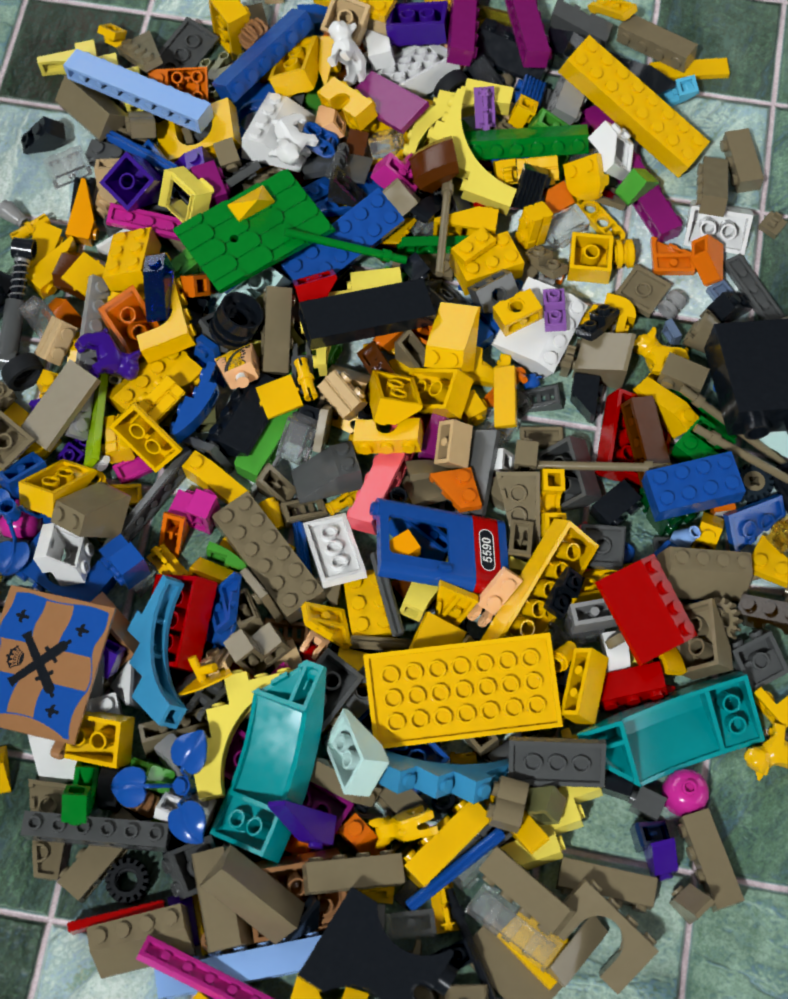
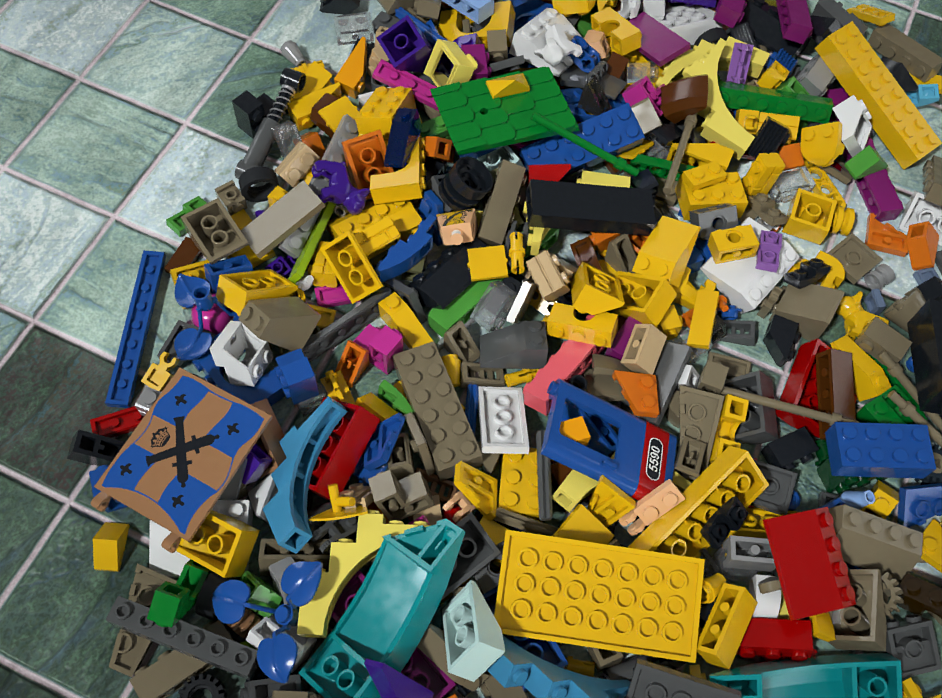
camera: 10 degrees right, 5 degrees down
(719, 511) = (896, 483): orange tile -> none

